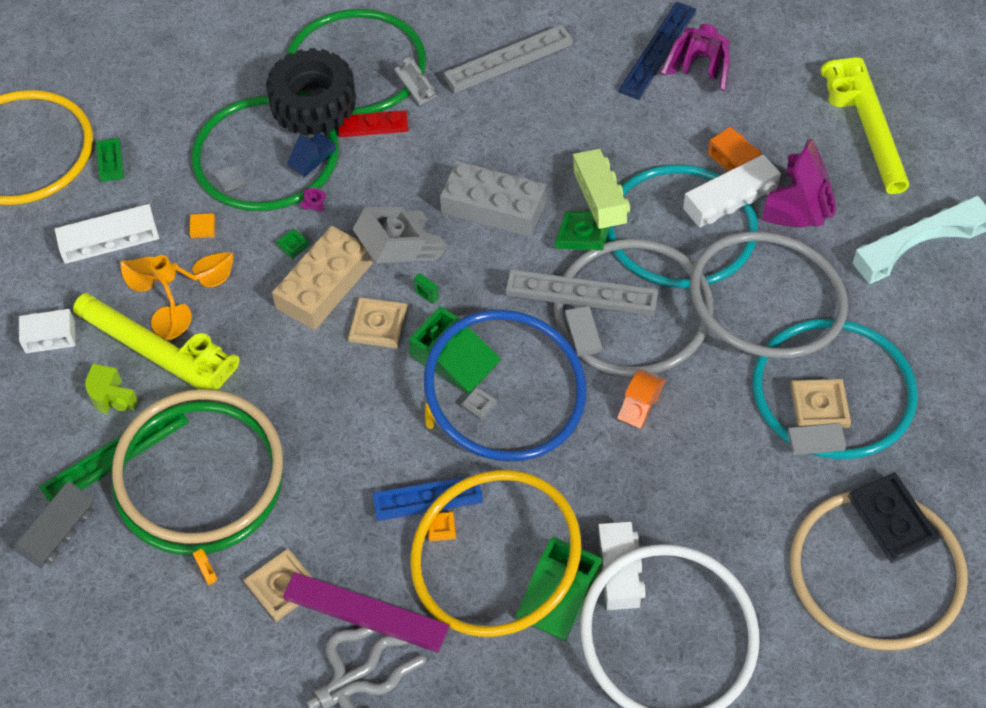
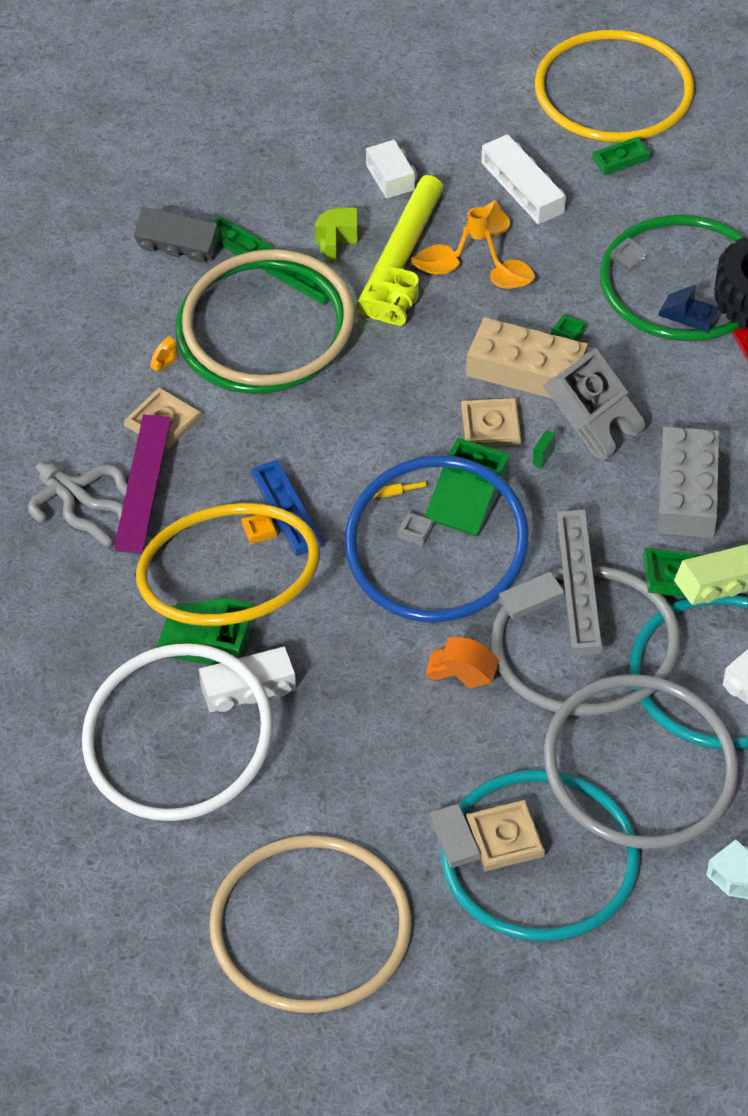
camera: 75 degrees right, 5 degrees down
(202, 225) = (565, 251): light orange tile -> none
(313, 193) = (631, 324): magenta plate -> none
(893, 517) = (372, 923): black tile -> none

